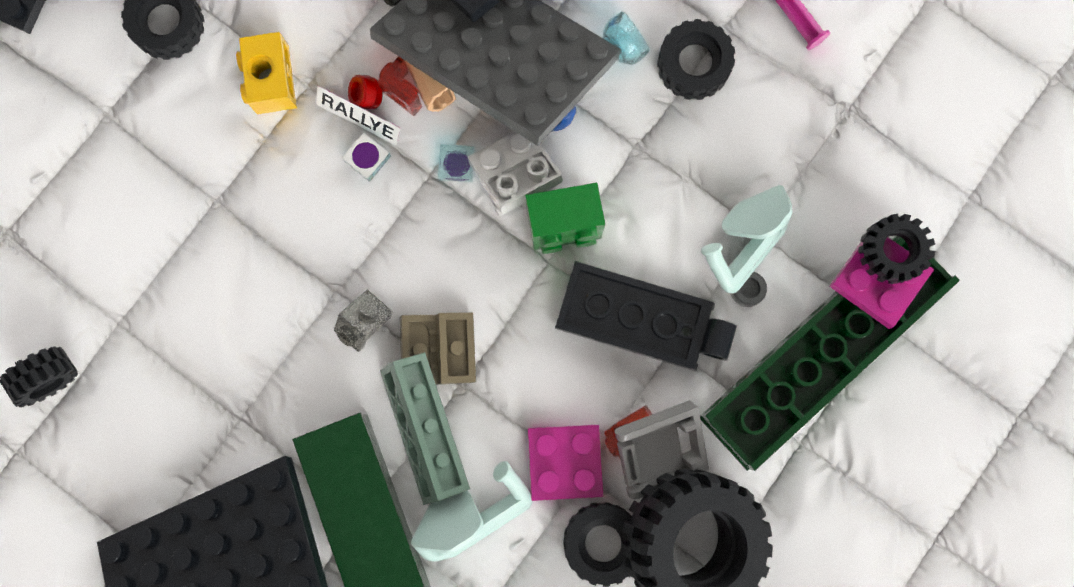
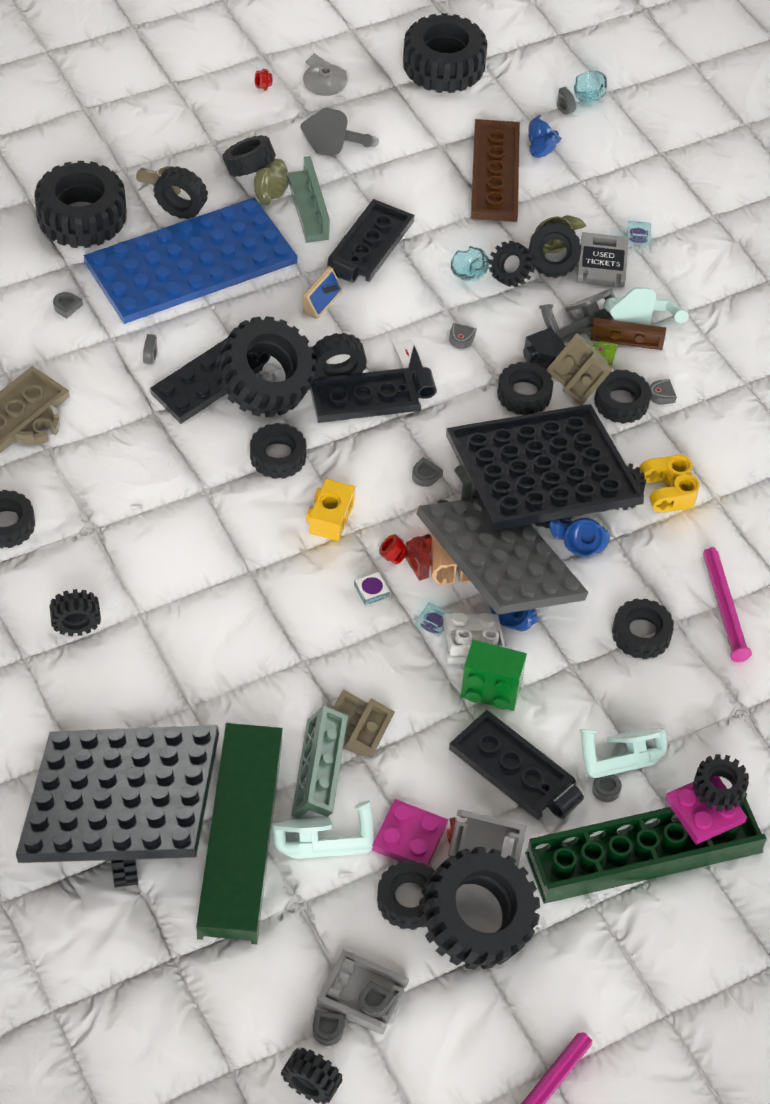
camera: 20 degrees right, 30 degrees down
(357, 115) = (380, 561): white sticker -> none
(361, 320) = (312, 679): clear smoke bracket -> none
(626, 36) = (599, 594): clear light blue hair -> none

